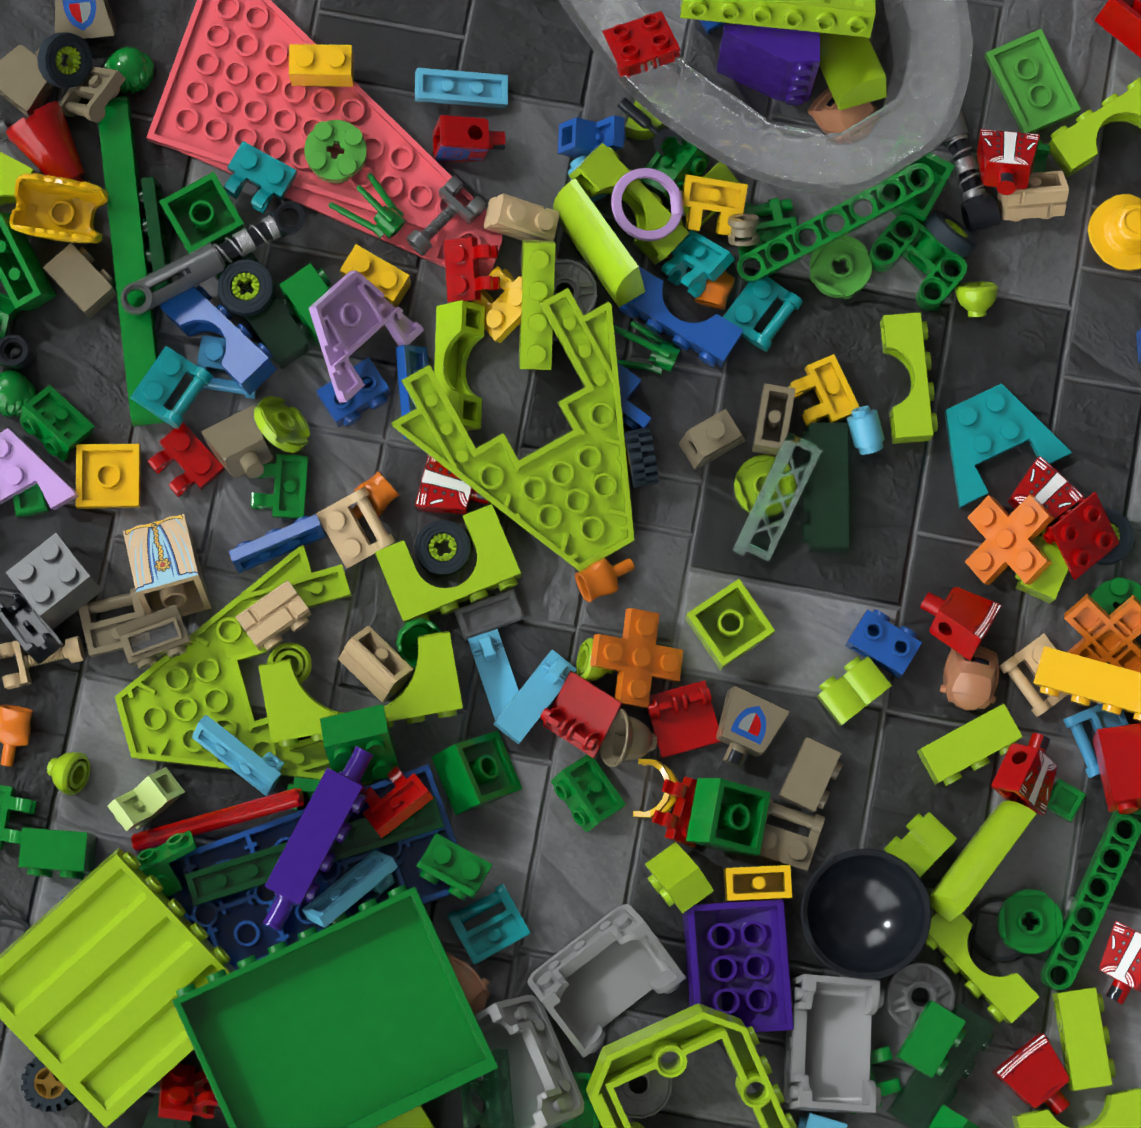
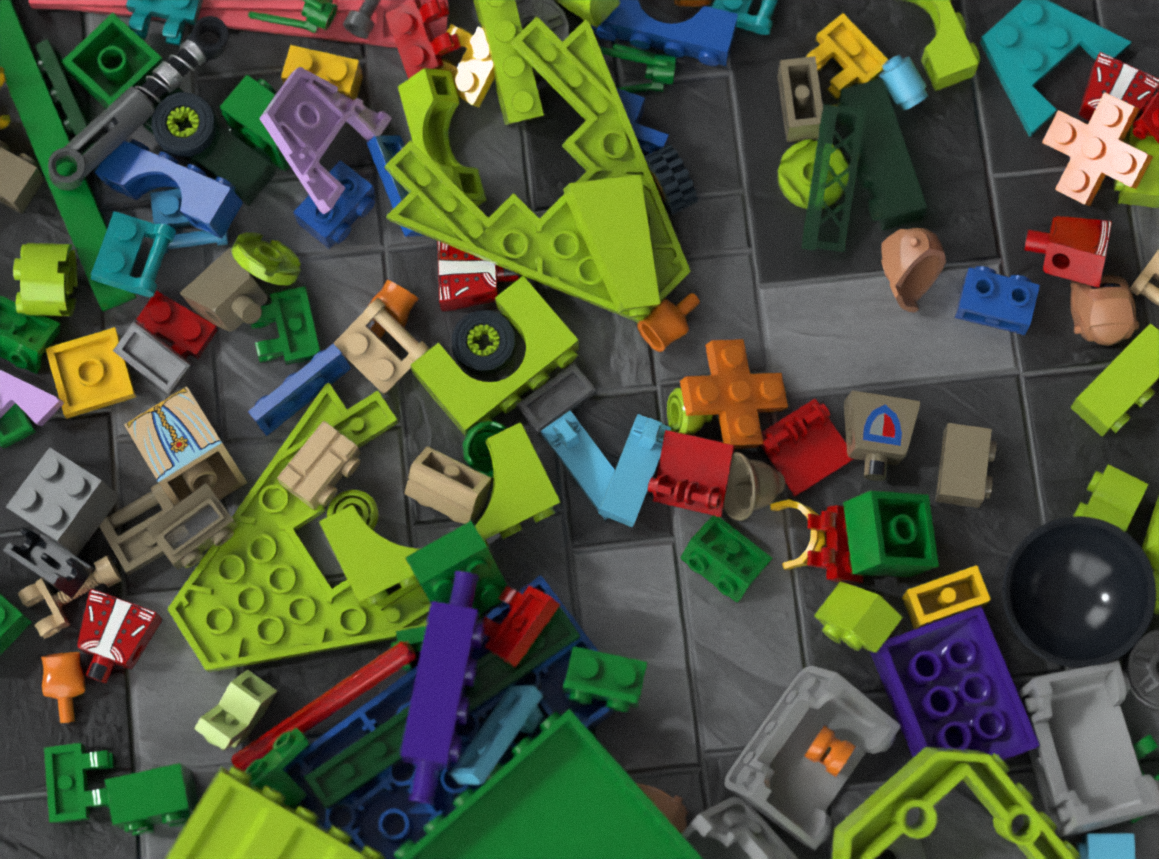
camera: 10 degrees left, 5 degrees down
(65, 704) = (114, 633): none -> red torso
(69, 772) = (141, 707): lime brick -> none
(93, 386) = (46, 279): none -> lime brick
(163, 481) = (153, 358): none -> flat silver tile
(259, 772) = (335, 635): medium azure hinge -> none
(476, 772) = (595, 572): green slope -> none
(494, 933) = (670, 744): teal plate -> none
(580, 497) = (618, 237): none -> lime slope
(627, 986) = (837, 756): none -> orange wheel
(711, 439) = (743, 136): dark tan torso -> none
(729, 624) = (824, 328): lime brick -> none
(788, 846) = (966, 550): dark tan plate -> none
(820, 592) = (912, 264): none -> nougat helmet
(853, 690) = (981, 359): lime brick -> none

